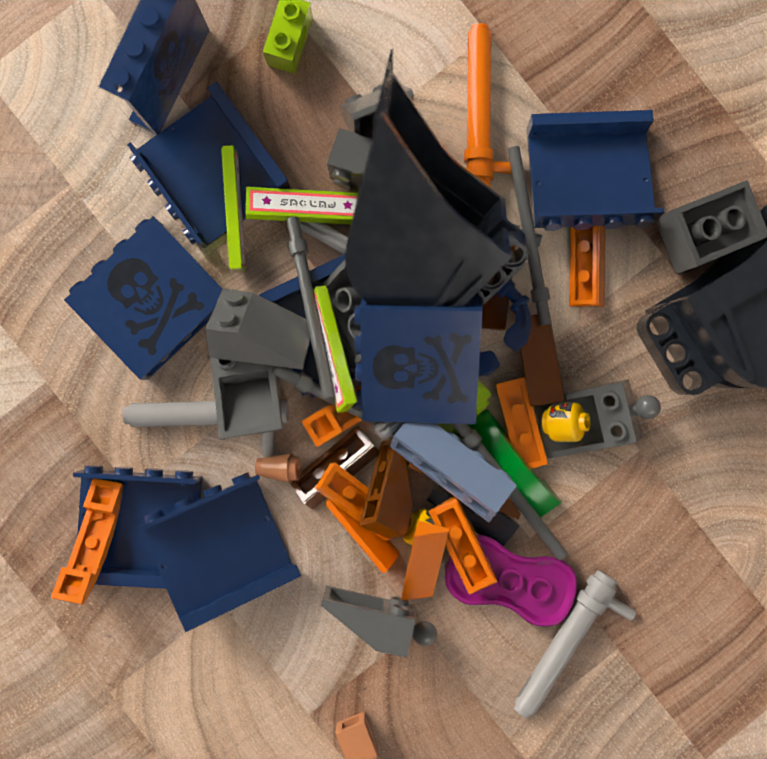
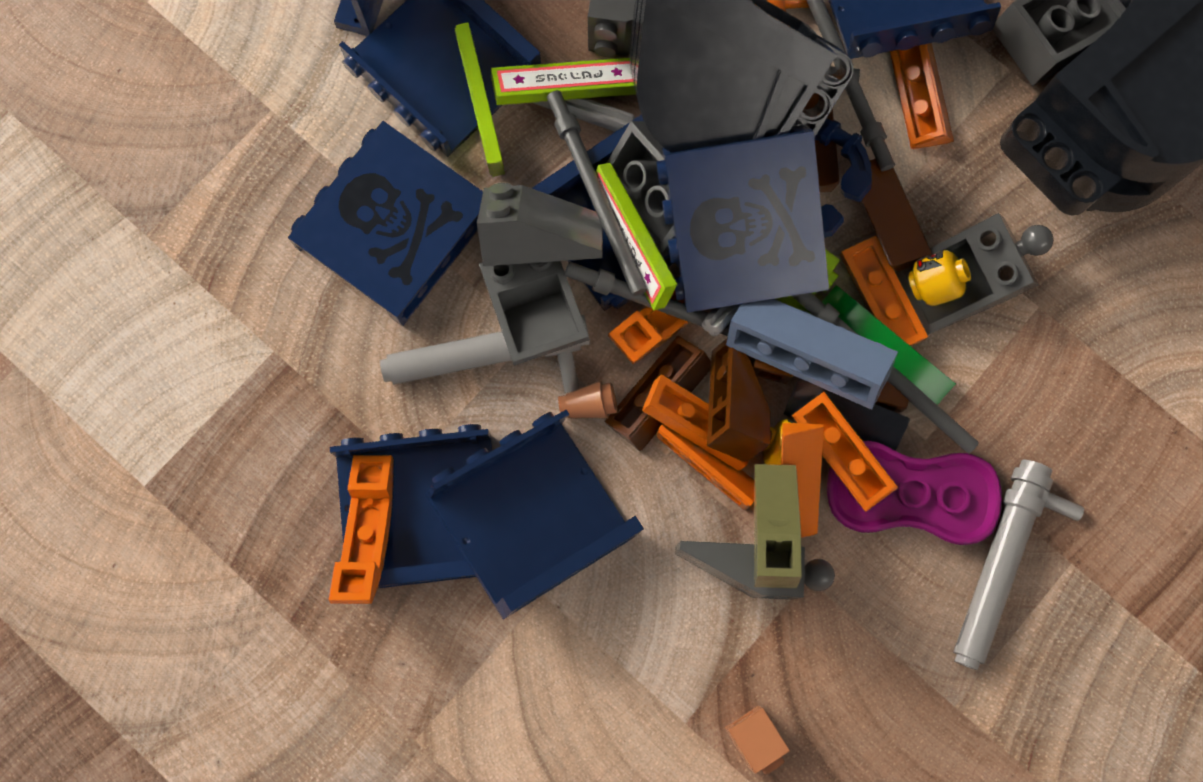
camera: 15 degrees left, 10 degrees down
(395, 605) = (776, 527): none -> olive slope

